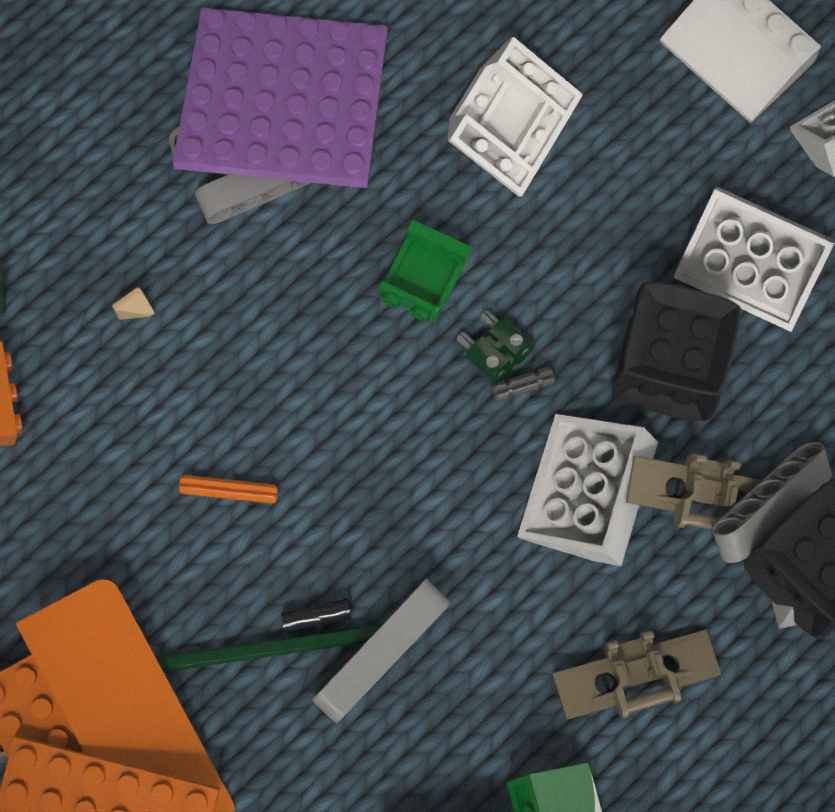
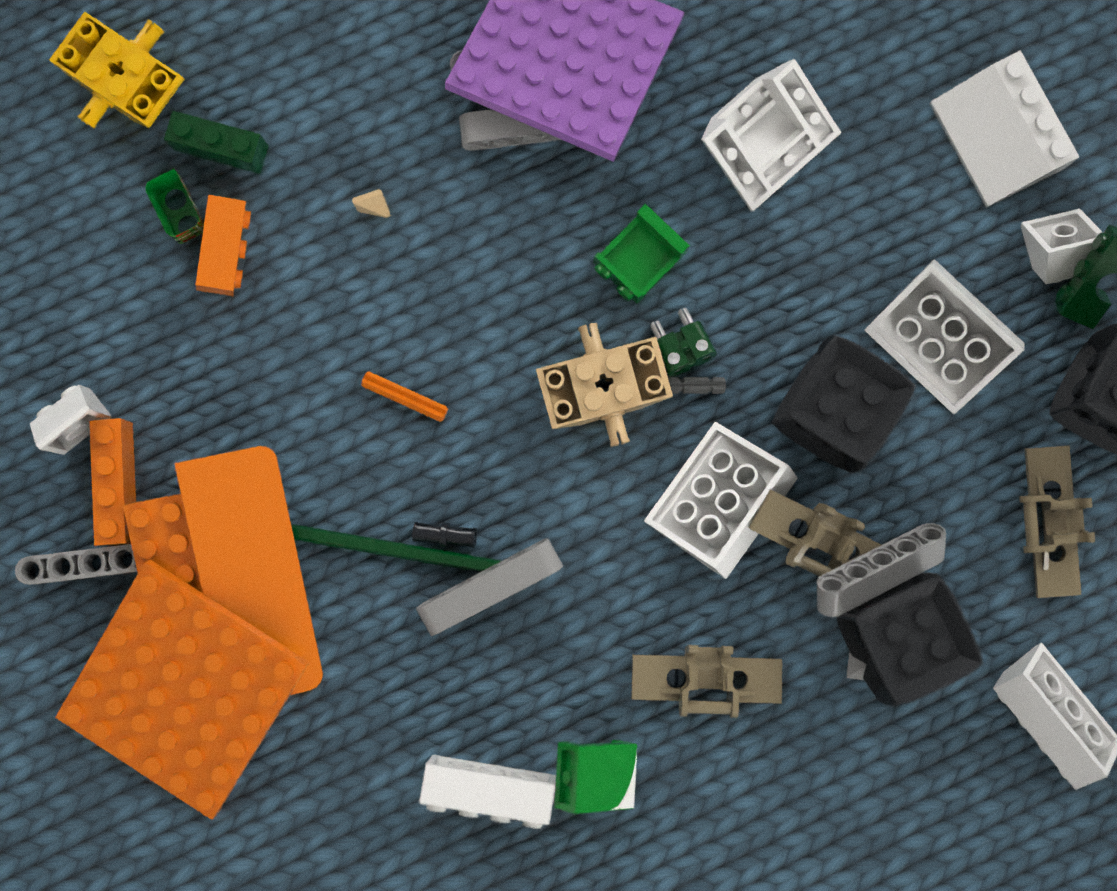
camera: 25 degrees right, 10 degrees up
(454, 387) = (635, 378): none -> tan slope

